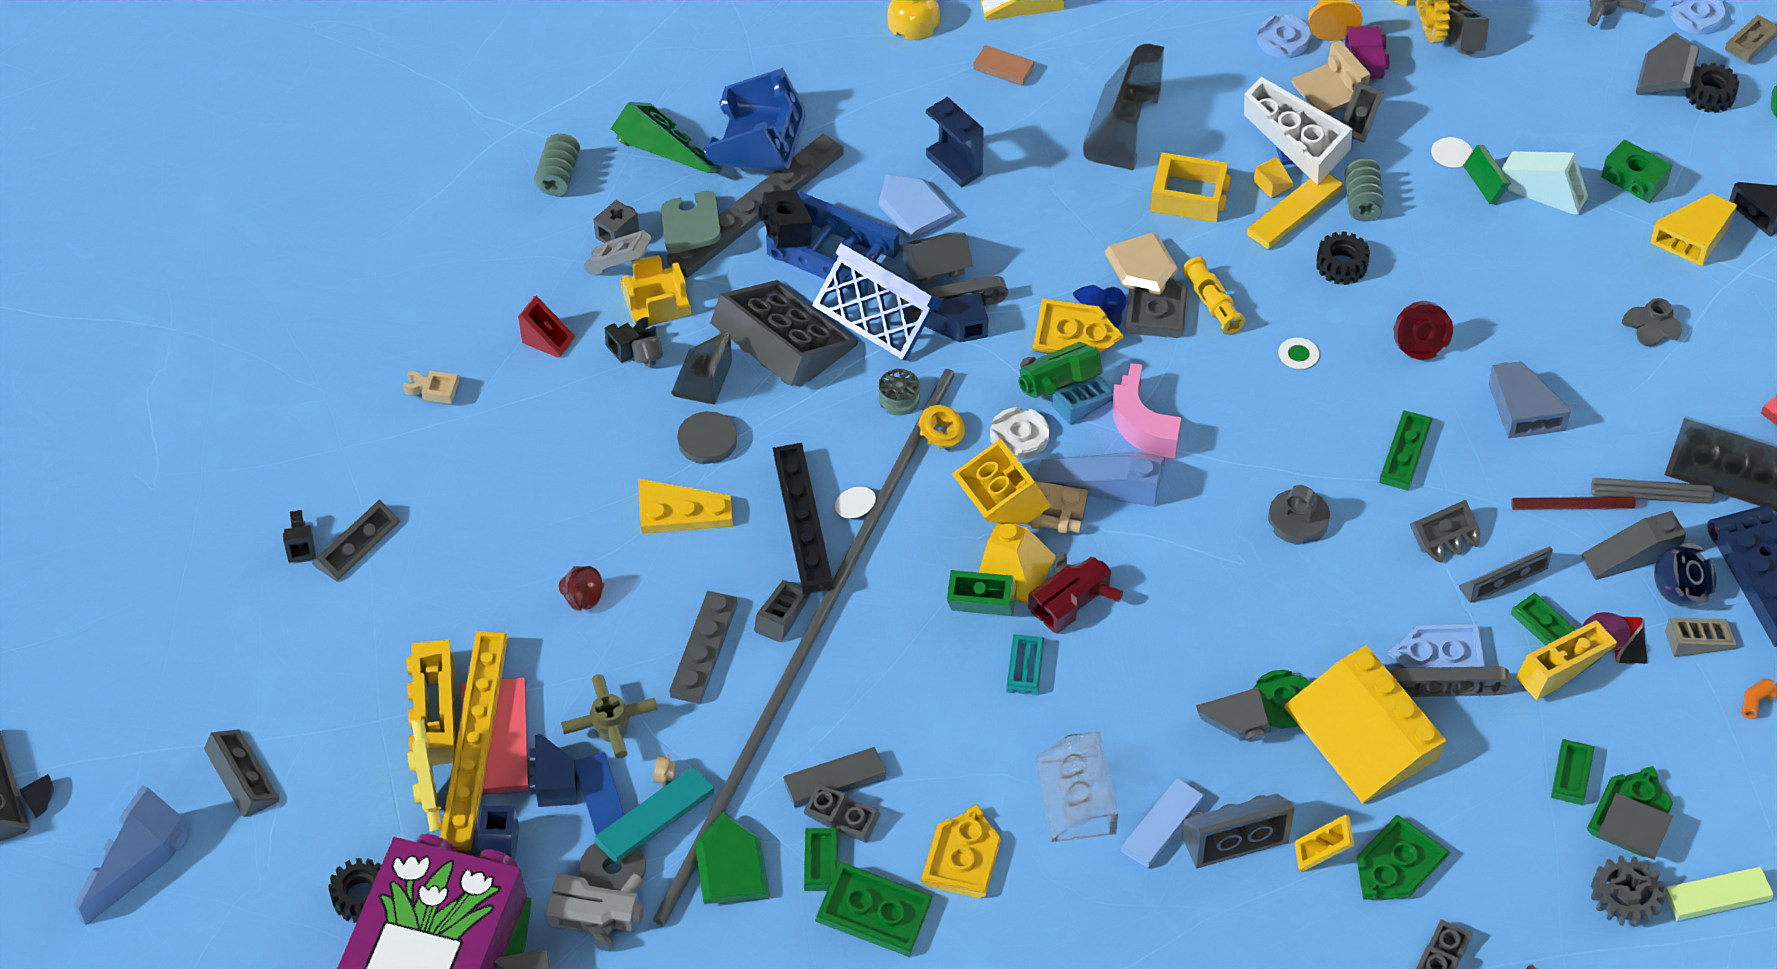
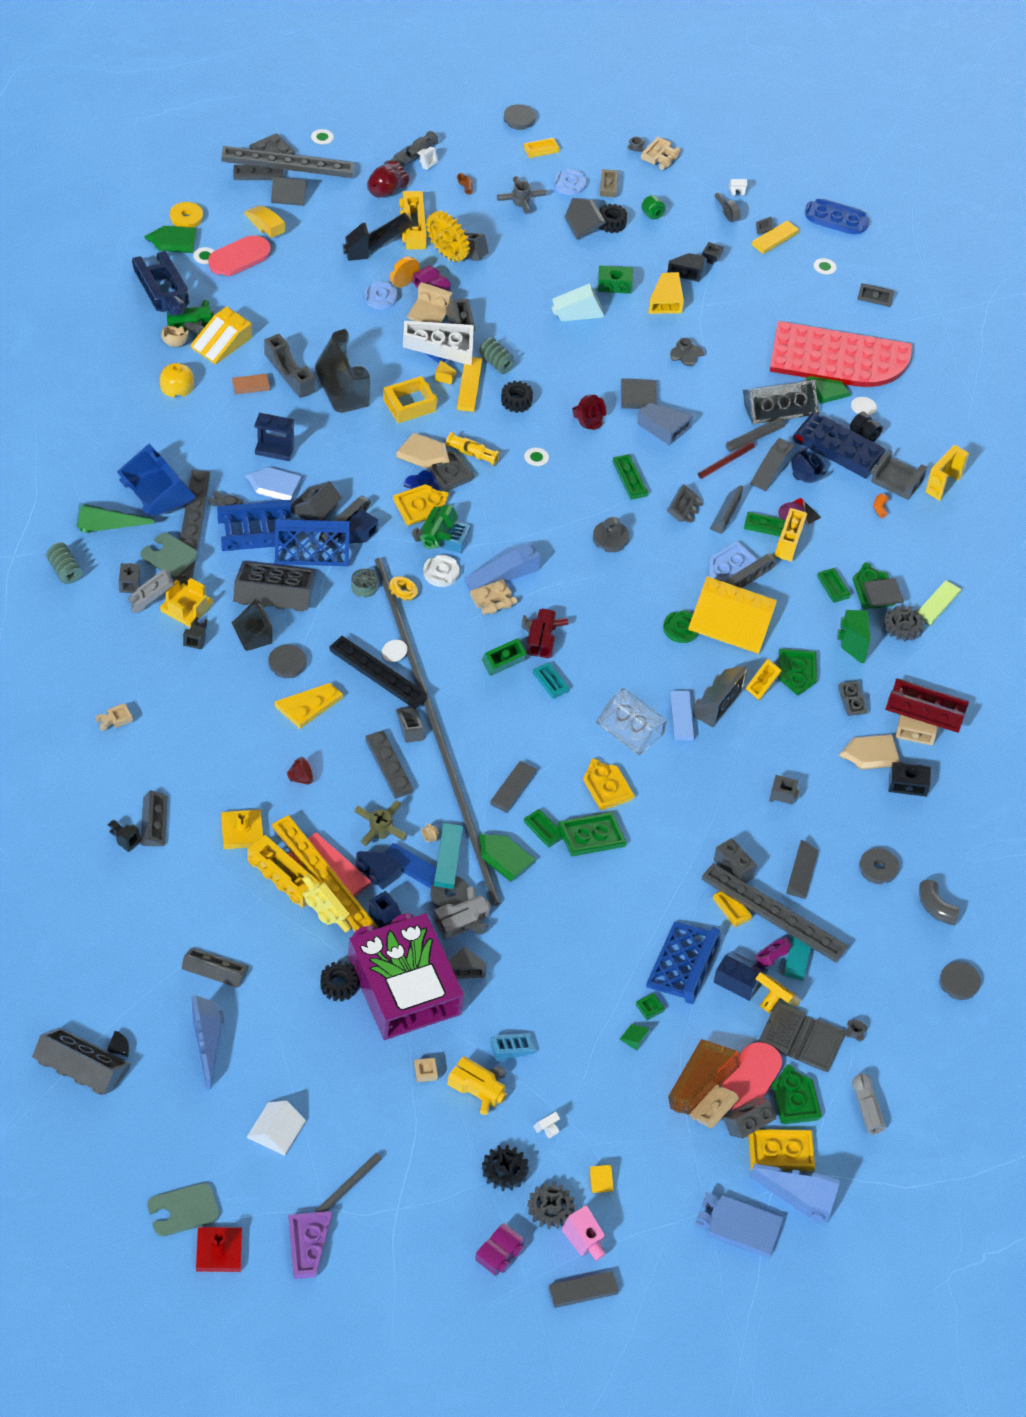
camera: 45 degrees left, 0 degrees up
(443, 615) = (241, 828): none -> yellow tile
(543, 329) = (147, 654): red slope -> none
(647, 350) = (213, 634): dark grey piece -> none
(785, 219) = (227, 523): black brick -> none
(828, 194) = (221, 501): none -> dark grey plate
(838, 811) = (531, 801): dark grey slope -> none
(1001, 486) = (467, 597): yellow slope -> none
(1018, 553) = (498, 630): yellow slope -> none
(1067, 64) = (298, 378): none -> dark grey arch
(1140, 426) = (494, 532): bright pink arch -> none
(1238, 715) = (673, 644): dark grey slope -> none
(1451, 152) = (517, 315): white sticker -> none
(1486, 174) = (547, 317): green tile -> none
(1526, 341) = (637, 393): none -> dark grey tile
(1528, 858) = (855, 634): none -> green slope
(1681, 646) = (827, 499): dark tan slope -> none

